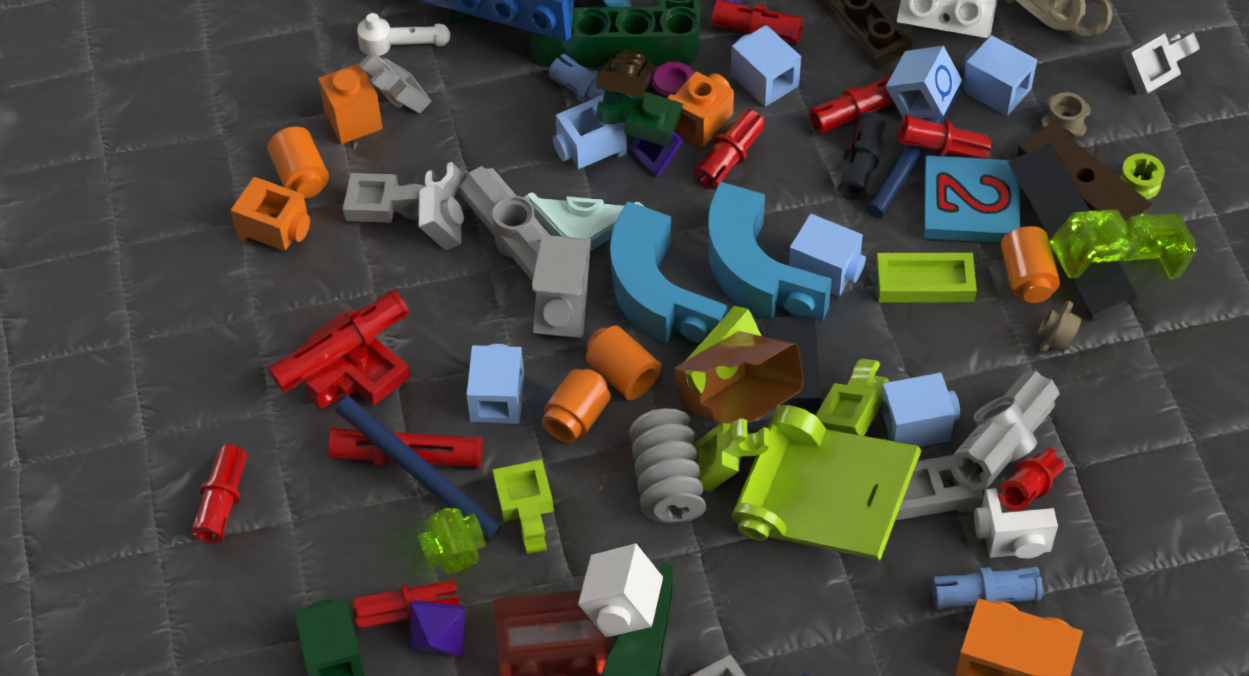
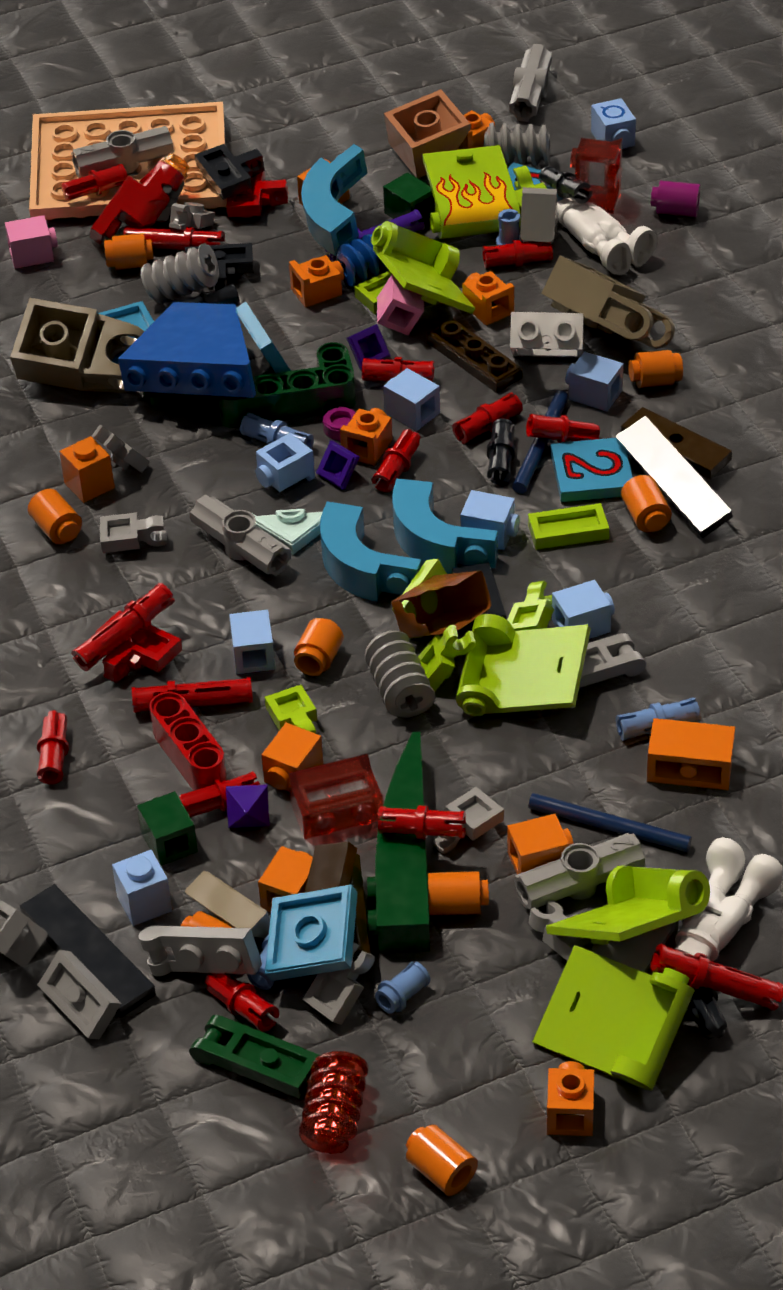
camera: 10 degrees left, 10 degrees down
(270, 214) = (43, 554): orange brick -> none
(377, 36) = (92, 417): white piece -> none
(380, 501) = (186, 740): none -> red beam
(415, 465) = (205, 701): dark blue bar -> none
(438, 209) = (178, 531): light grey plate -> none
(452, 540) = (244, 746): clear neon green gear -> none
(507, 565) = (290, 752): none -> orange brick
(561, 285) = (288, 566): light grey slope -> none
(620, 590) = (385, 749): white brick -> none
(622, 361) = (351, 613): orange brick -> none
(626, 73) = (305, 412): dark brown tile -> none
(644, 117) = (327, 441): dark green plate -> none
(924, 82) = (539, 391): light blue brick -> none
(1004, 430) = (650, 611): light grey piece -> none
(1014, 533) = (671, 677): white bracket -> none
(1030, 480) = (676, 640): red axle -> none
(1059, 328) = (677, 543): dark tan plate -> none
(1067, 113) = (654, 399): dark tan plate -> none
(1078, 68) = (655, 368): none -> orange brick
(1091, 239) = (690, 474): clear neon green bracket -> none
(1146, 165) = (721, 432): lime bush -> none
(1156, 58) = (714, 354): plate -> none
(1163, 238) = (739, 472): clear neon green bracket -> none

